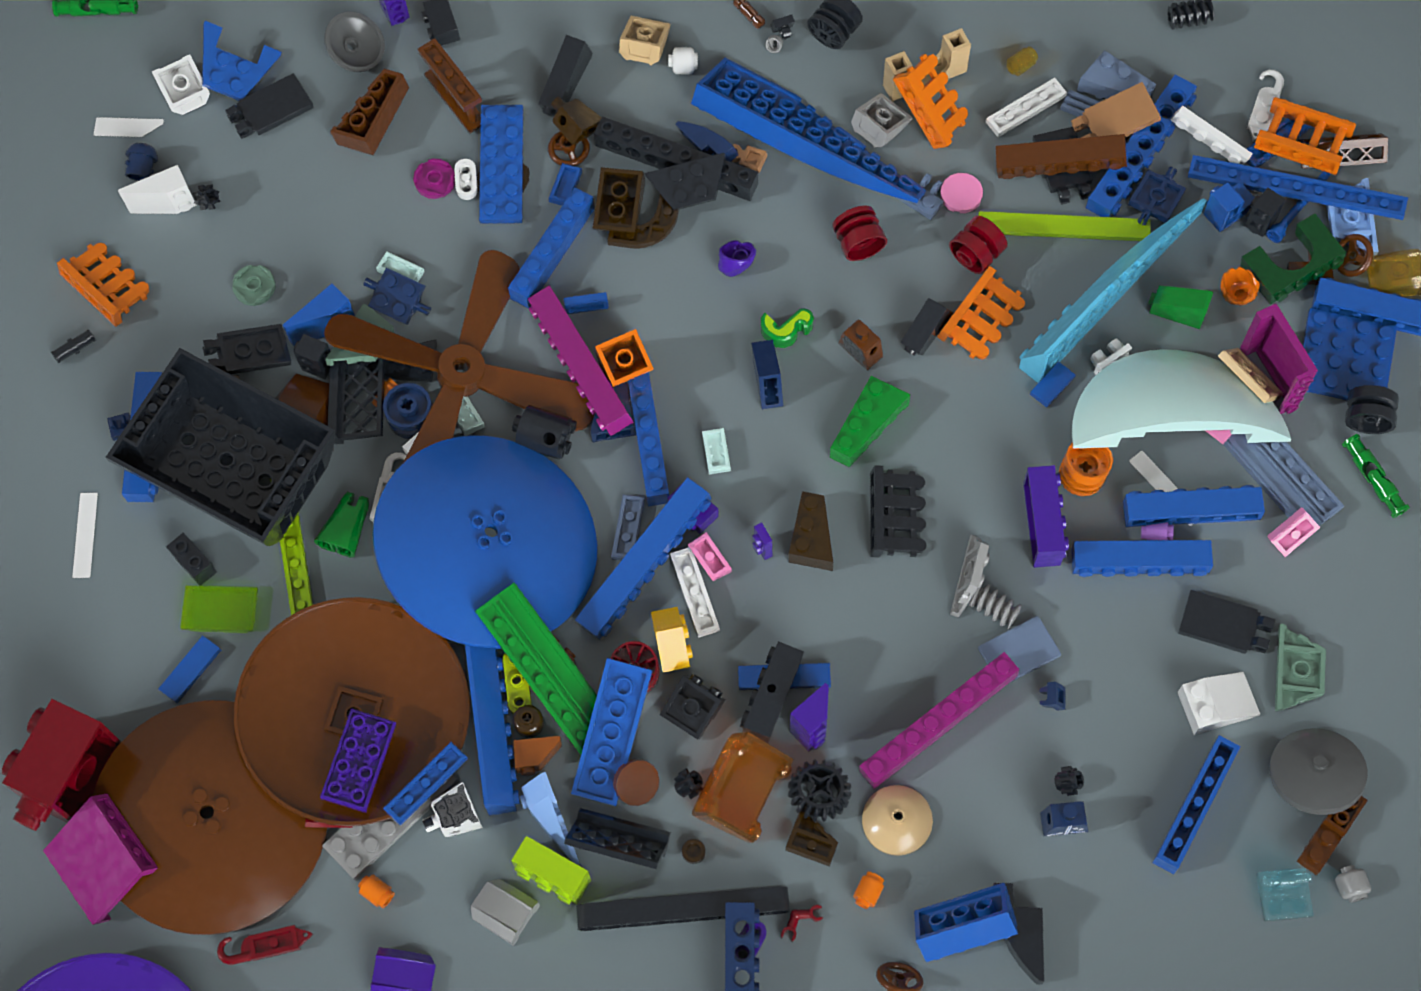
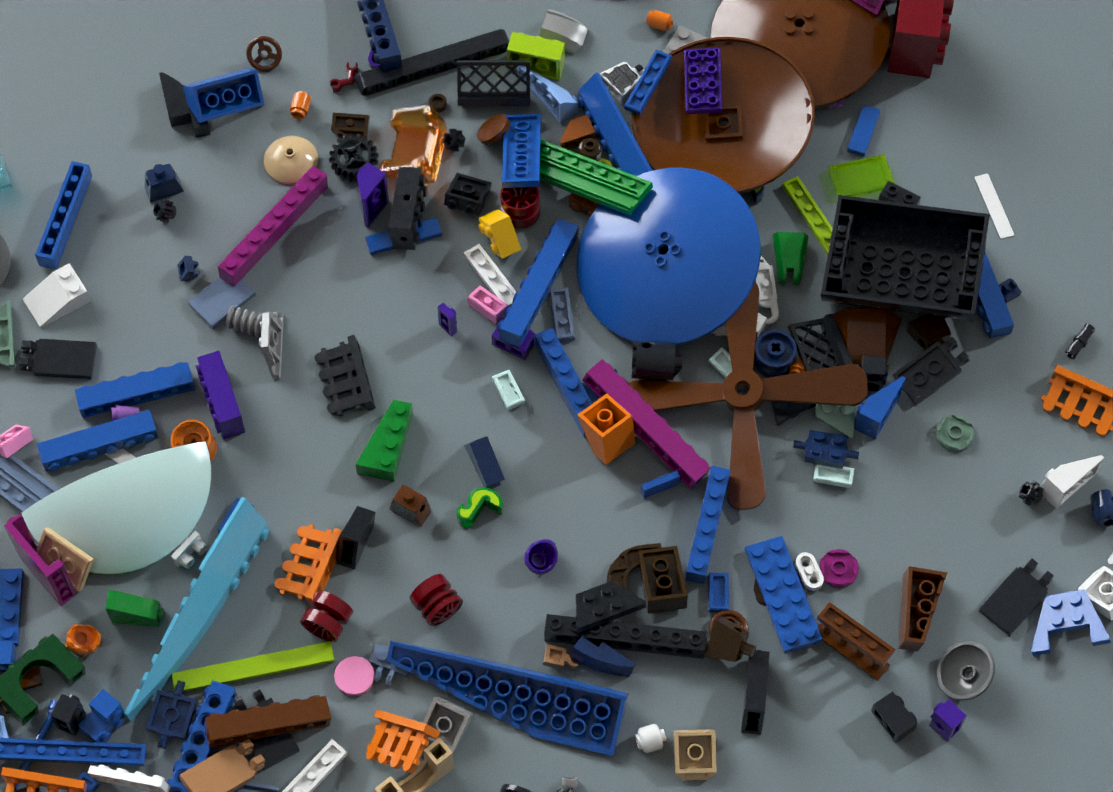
camera: 160 degrees right, 5 degrees down
(811, 534) = (409, 337): dark brown wedge -> none

